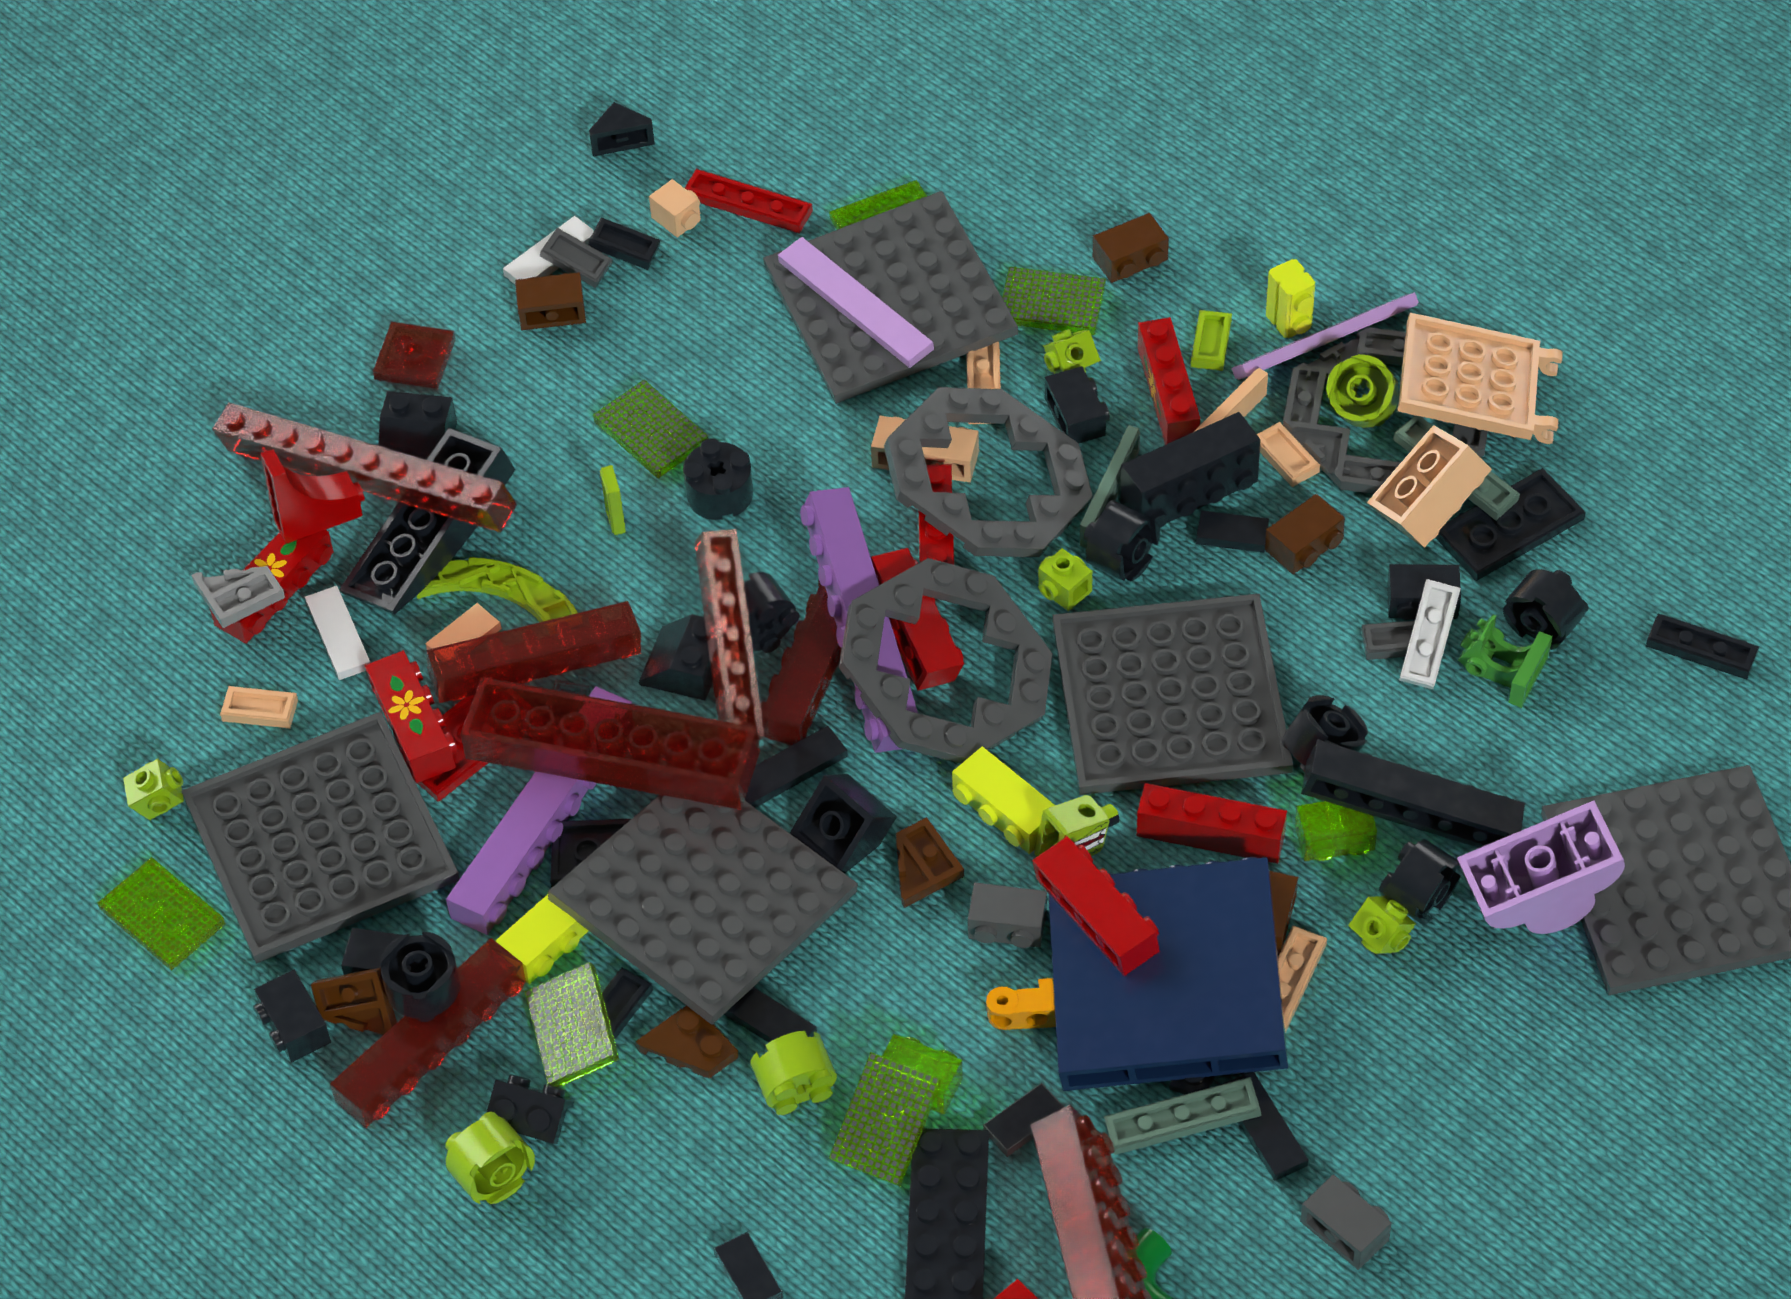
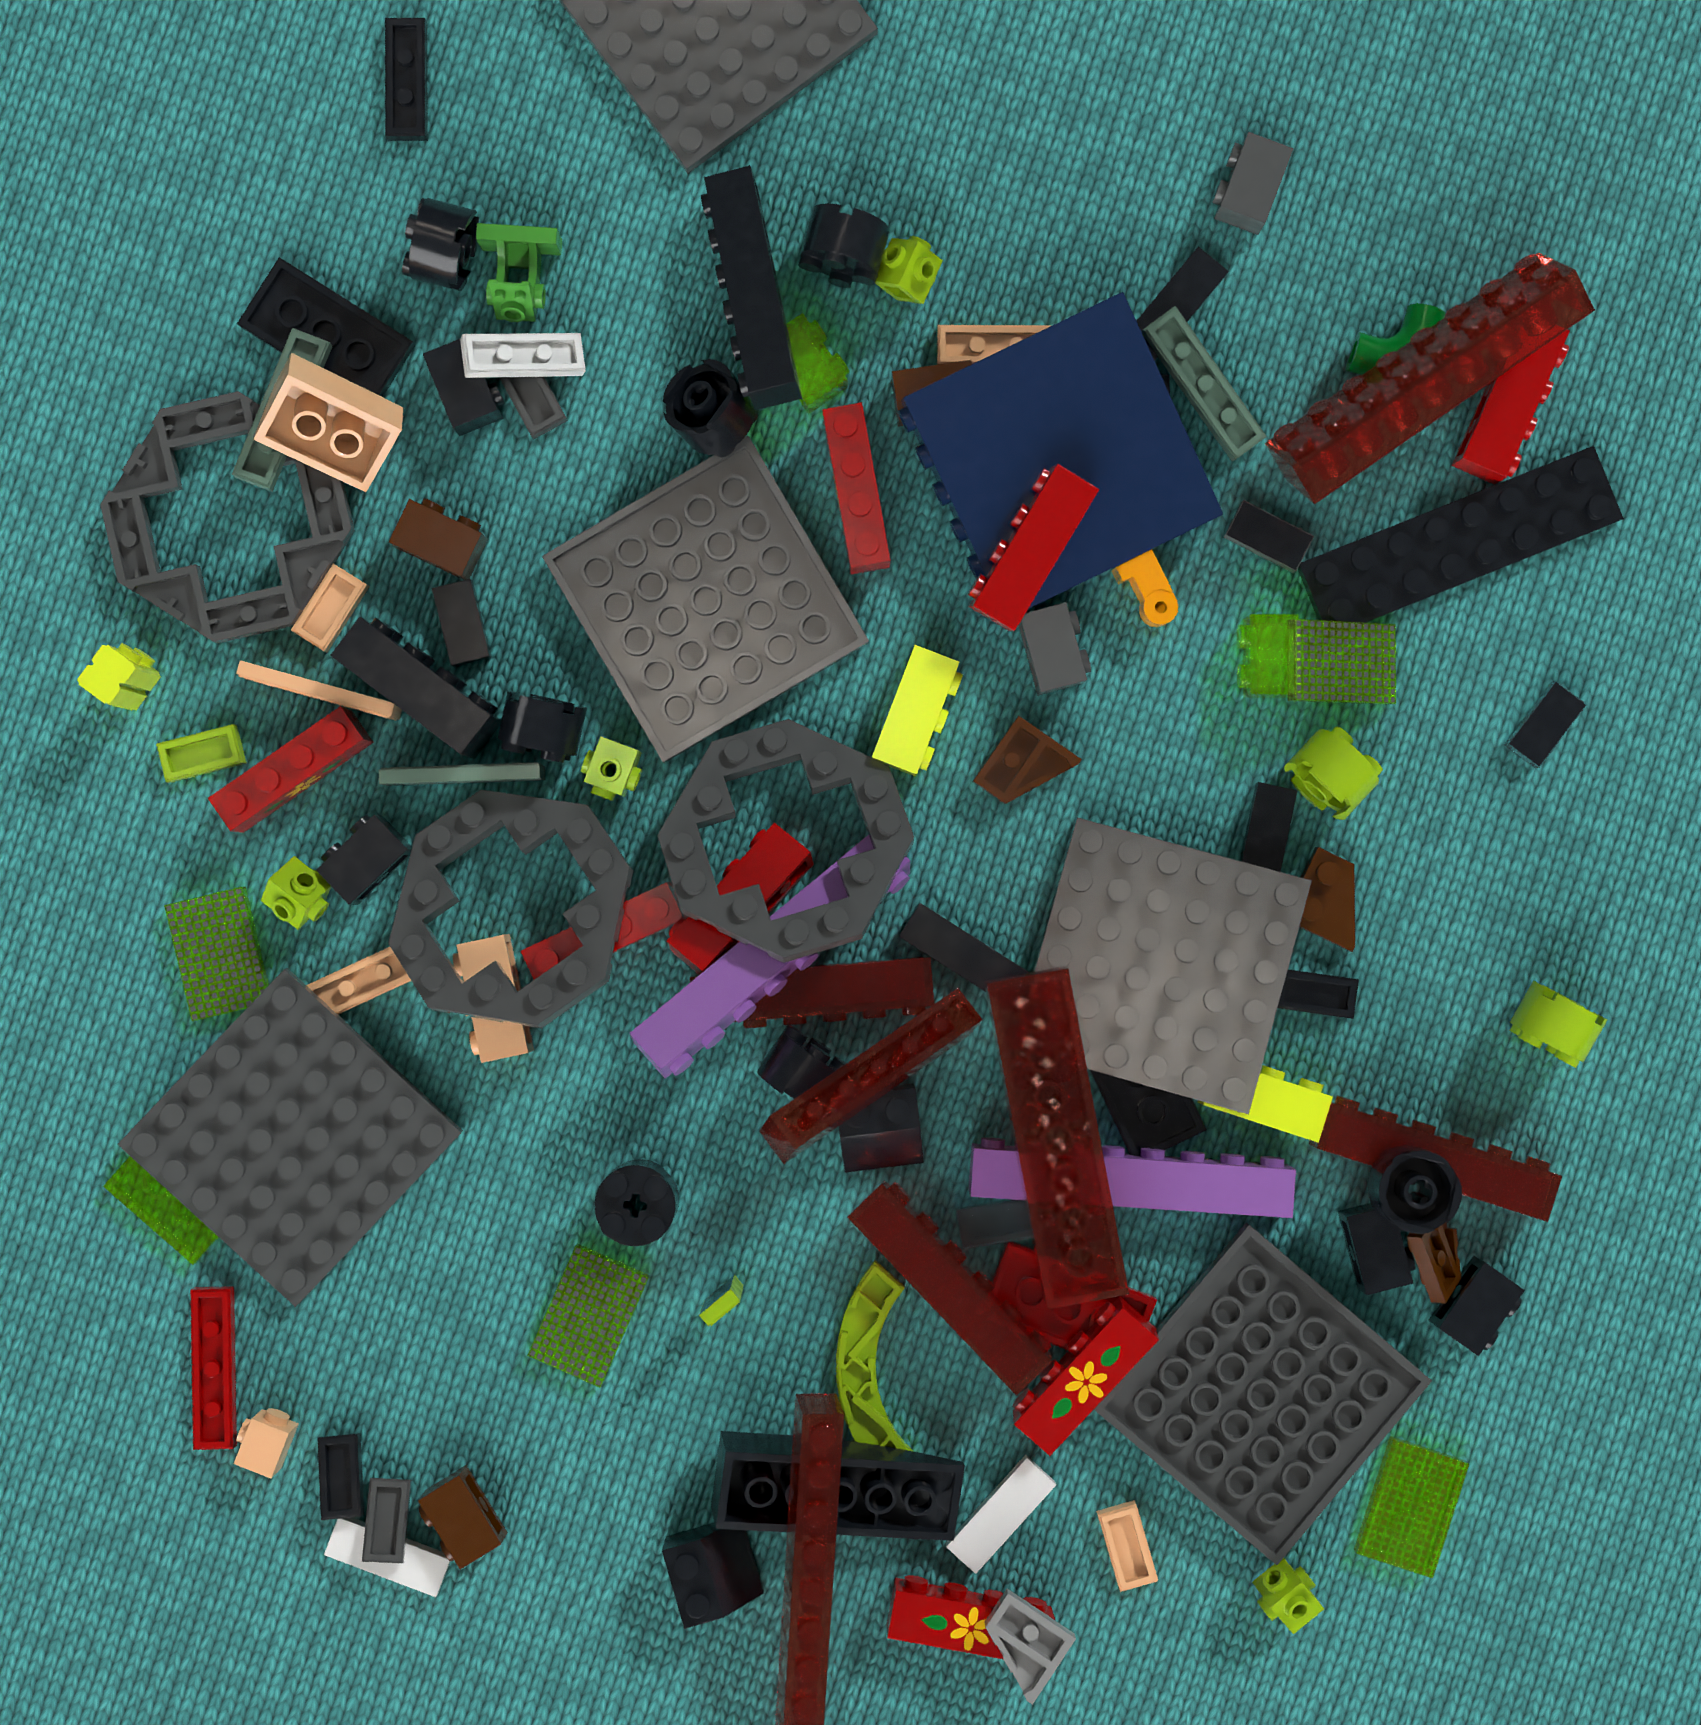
camera: 120 degrees left, 35 degrees up
(309, 503) = (888, 1627): red arch -> none
(414, 355) = (602, 1631): clear red plate -> none
(470, 625) = (947, 1377): light nougat tile -> none
(530, 1109) = (1468, 1019): black bracket -> none
(571, 1025) = (1366, 1022): clear neon green tile -> none
(620, 131) = (174, 1567): black slope -> none
(842, 822) = (1014, 863): black slope -> none
(856, 302) = (328, 1166): lavender tile -> none
(1080, 821) = (942, 627): lime torso -> none
(1130, 247) = (109, 894): reddish brown brick -> none
(1326, 335) = (147, 625): lavender tile -> none
(1356, 374) = (239, 528): lime brick -> none
(1475, 377) = (151, 432): light nougat plate -> none
(1545, 871) = (796, 115): lavender brick -> none

